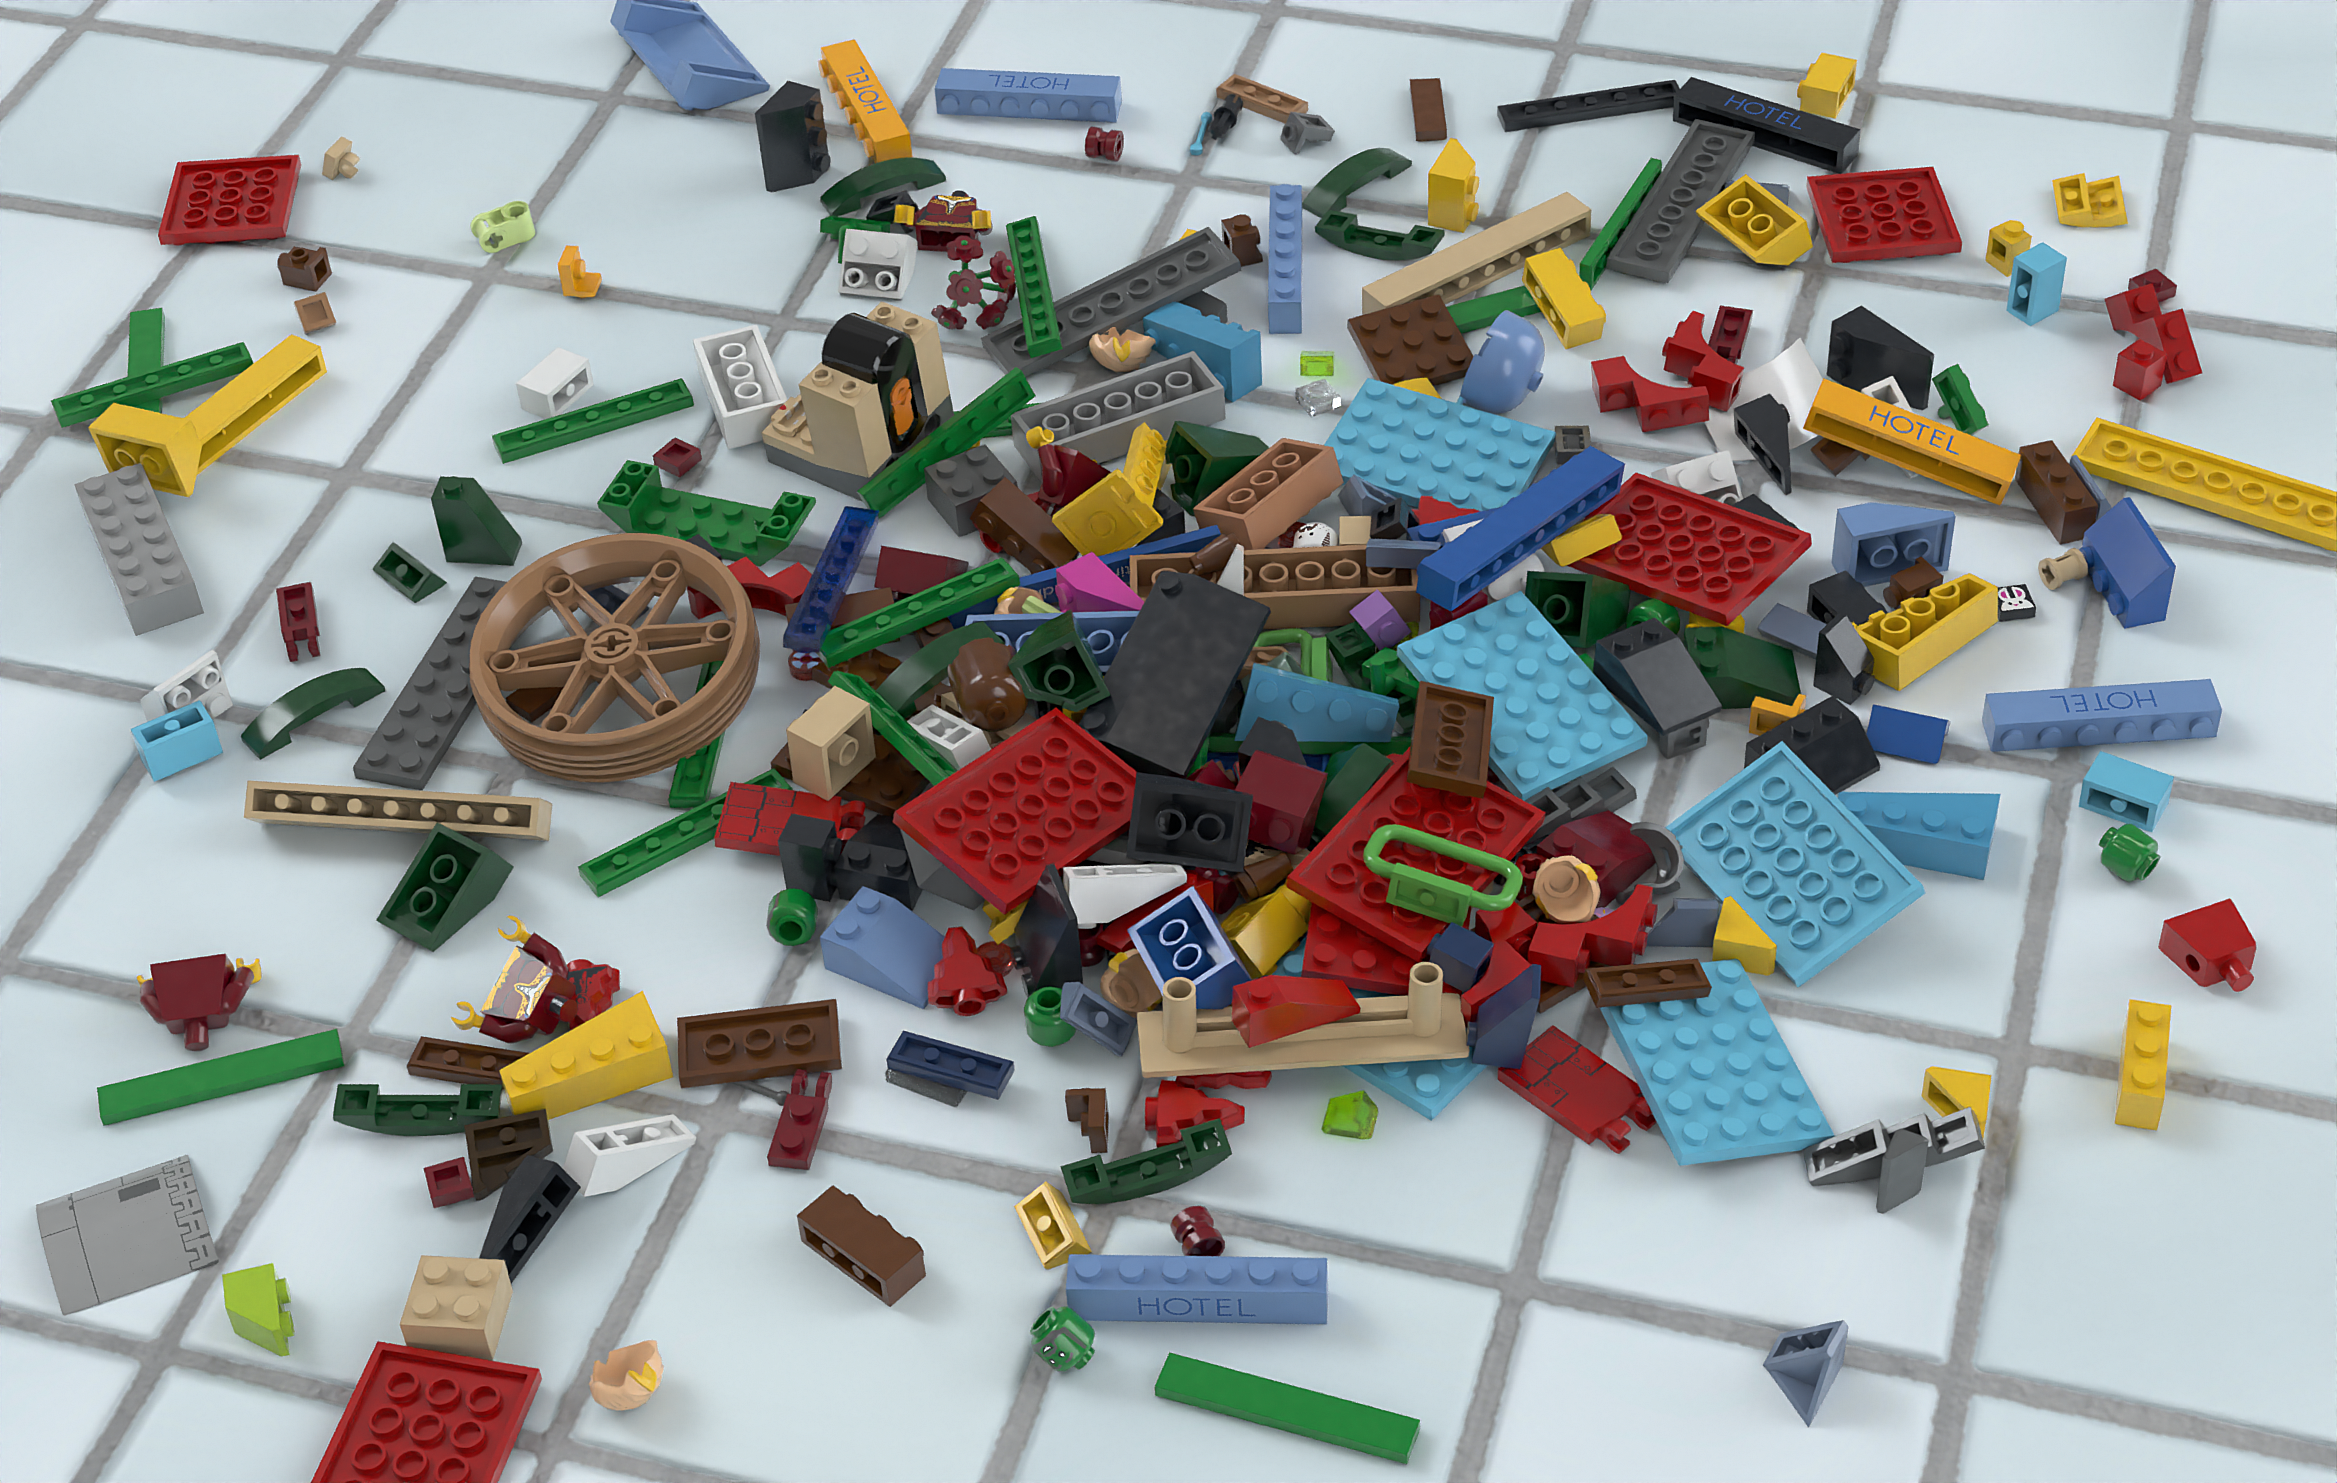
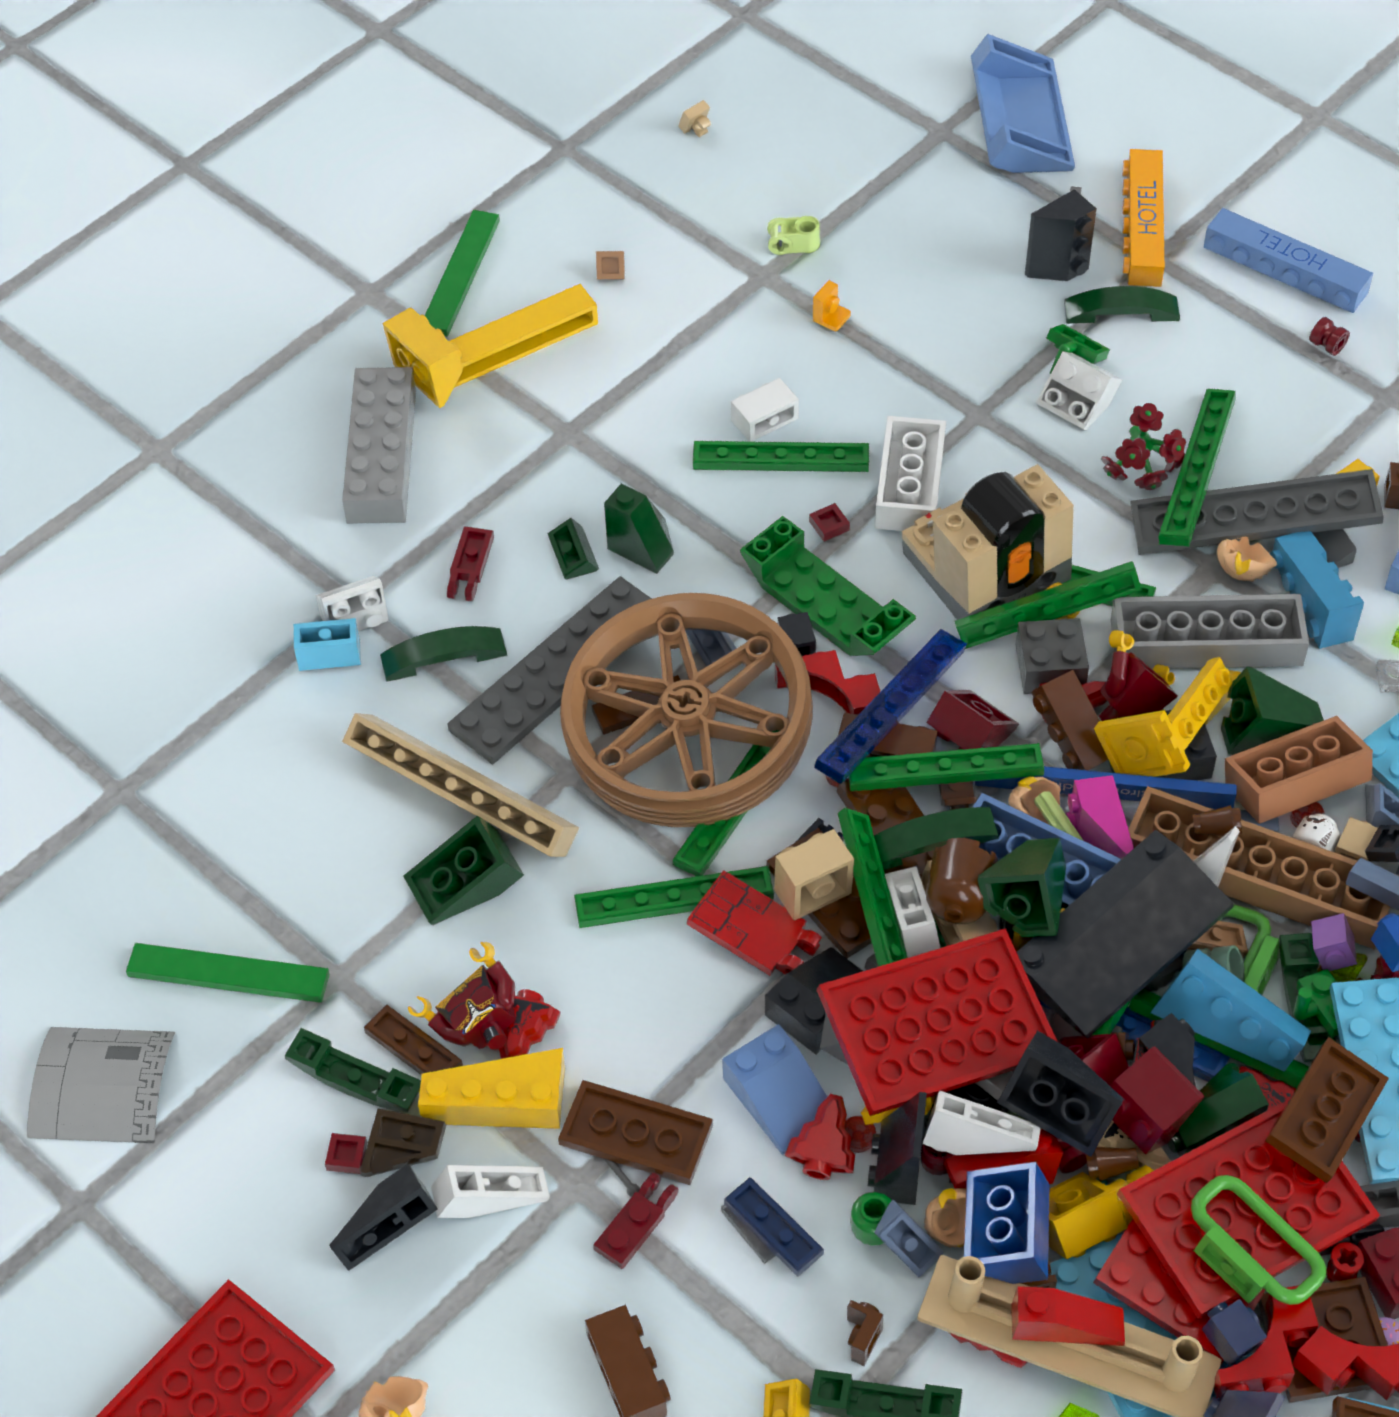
camera: 25 degrees right, 10 degrees up
(152, 384) = (458, 289): green tile -> none
(196, 994) = (239, 892): dark red torso -> none
(230, 200) = (595, 126): red plate -> none
(257, 1309) = (159, 1202): lime slope -> none
(304, 268) = (618, 212): reddish brown brick -> none
(457, 1306) = (298, 1276): tan brick -> none
(792, 917) = (715, 1022): green head -> none
(809, 855) = (750, 973): black brick -> none
(884, 208) = (1120, 338): black bracket -> none
(945, 220) = (1156, 369): torso -> none
(1186, 1107) = (943, 1363): red rock -> none
(1566, 890) = (1363, 1301): light nougat hair -> none

